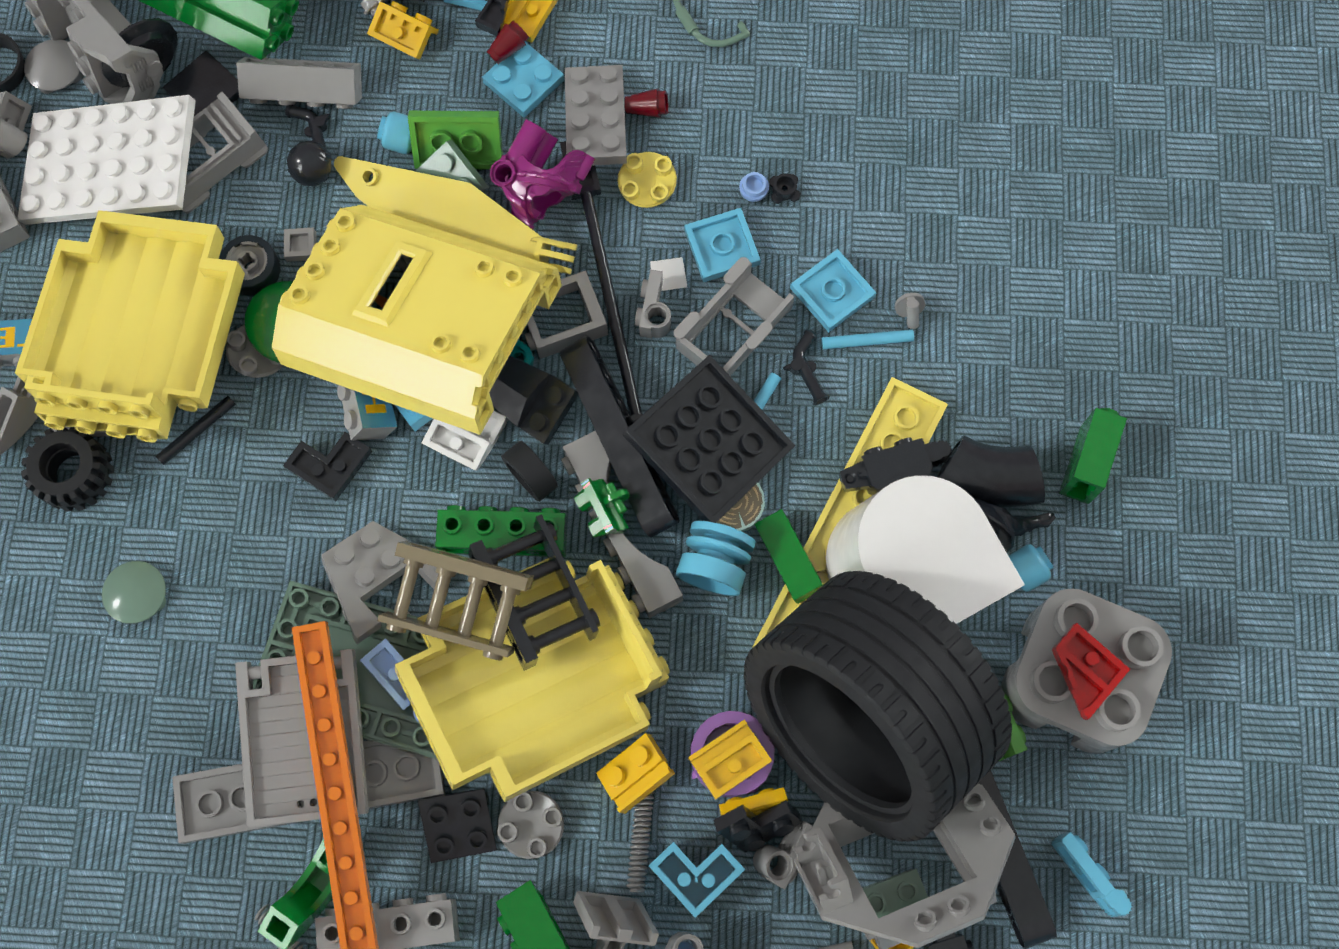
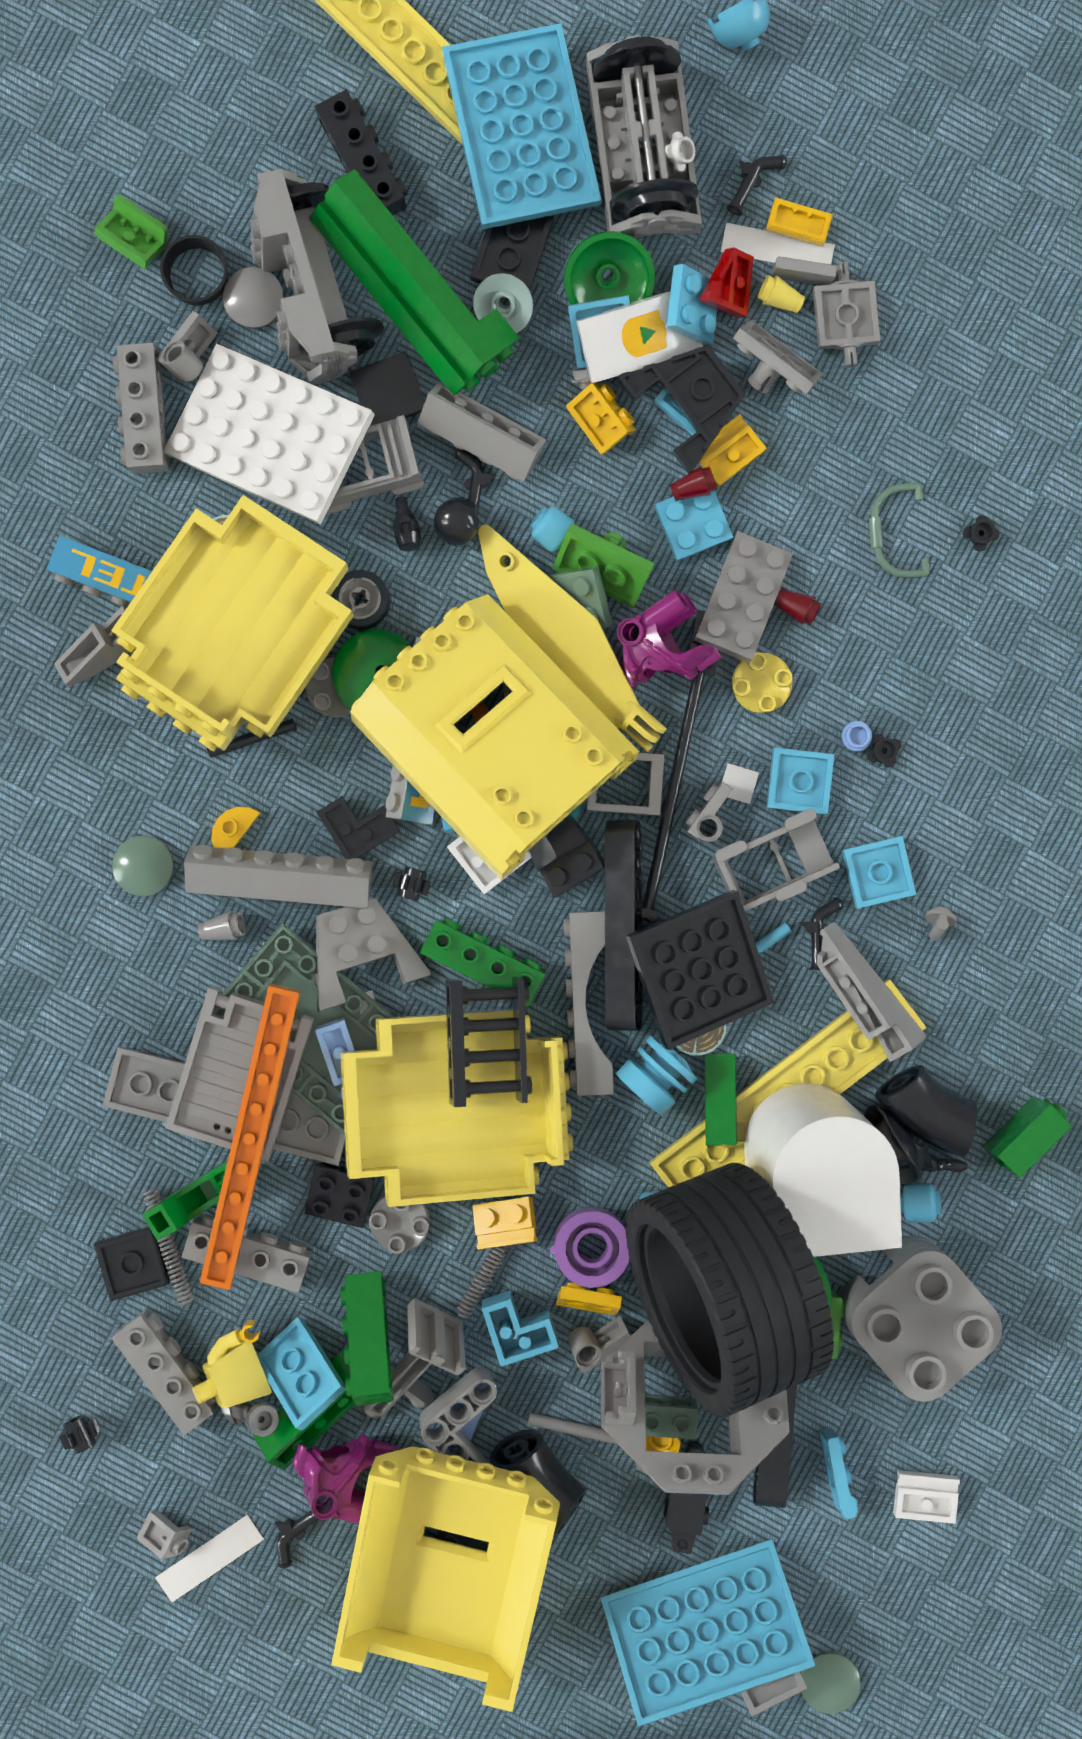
camera: 20 degrees right, 15 degrees up
(51, 452) = (100, 735): black tyre -> none
(208, 518) = (232, 826): none -> yellow plate
(235, 613) = (223, 927): none -> light grey cone
(266, 188) = (405, 526): none -> black piece
(268, 539) = (278, 876): none -> light grey brick
(299, 243) = (415, 600): light grey plate -> none
(401, 490) = (411, 883): none -> black gear
(447, 566) = (423, 996): dark tan fence -> none
(529, 471) = (531, 921): black tyre -> none
(608, 505) = (584, 989): green hips -> none
(730, 759) = (587, 1257): yellow plate -> none
(752, 831) = (579, 1315): black plate -> none
(867, 339) = (887, 931): medium azure bar -> none
(876, 398) = (866, 995): none -> light grey wedge
(882, 467) = (850, 1069): black hinge -> none
(1087, 669) = (918, 1334): red wing -> none
(1191, 858) = (926, 1496): none -> white plate

